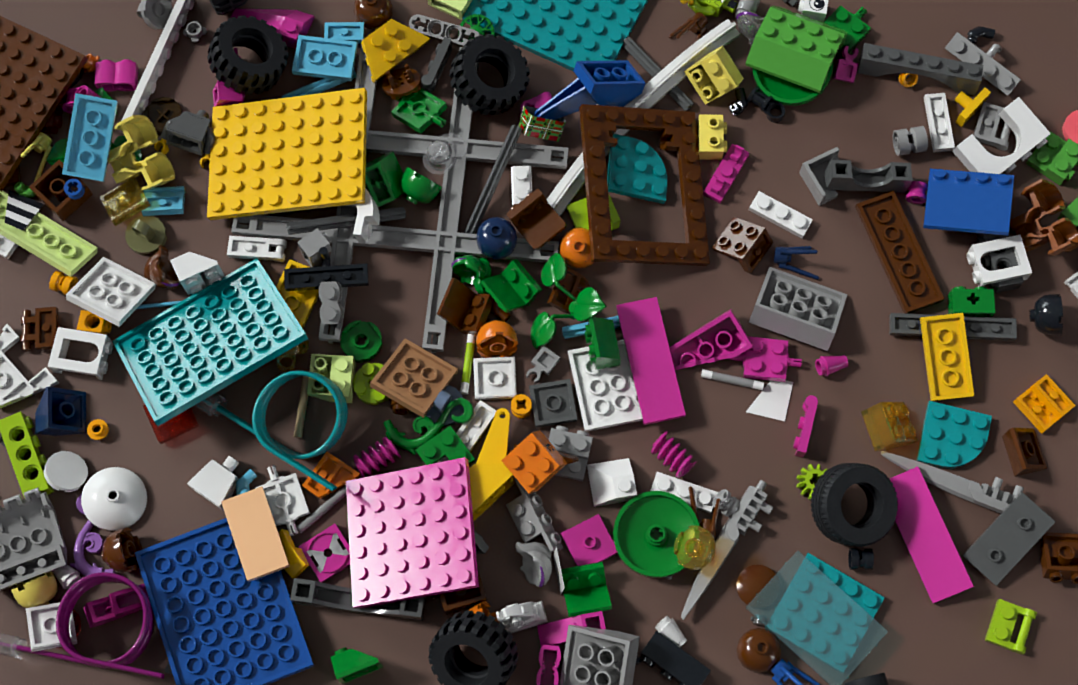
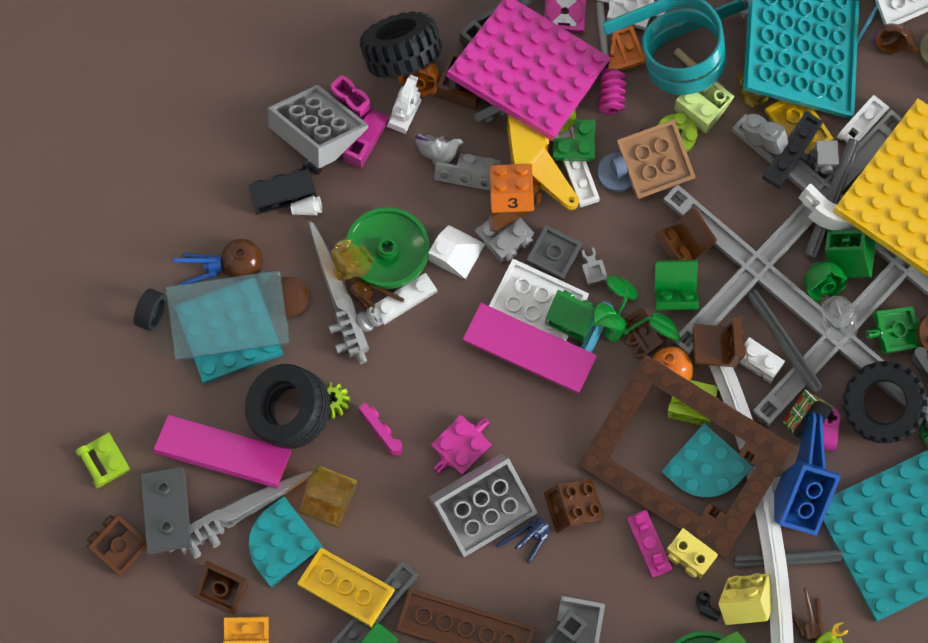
camera: 125 degrees right, 0 degrees up
(196, 271) = (872, 57): white slope -> none
(361, 329) = (720, 158): green plate -> none
(432, 429) = (604, 148): green plant -> none
(467, 364) = (637, 213): lime bar -> none
(472, 271) = (712, 272): green hair -> none
(494, 378) = (610, 226): white tile -> none
(496, 238) = (726, 302): dark blue cylinder -> none
(496, 339) = (642, 245): orange cylinder -> none
(521, 410) = (568, 229): light orange wheel -> none
(558, 571) = (416, 155): white sticker -> none
(585, 589) = (386, 165): green bracket -> none
(589, 542) = (423, 199): dark pink plate -> none
(672, 455) = (439, 308): dark pink piece -> none
(712, 342) = (508, 413): dark pink wedge -> none
(732, 379) = (465, 406): light grey bar -> none
(766, 104) = (687, 626): black connector -> none
(773, 400) = (423, 425): white sticker -> none
(780, 214) = (576, 559): white plate -> none
(830, 364) = (415, 490): dark pink cone -> none
(860, 559) = (242, 387): black wheel -> none

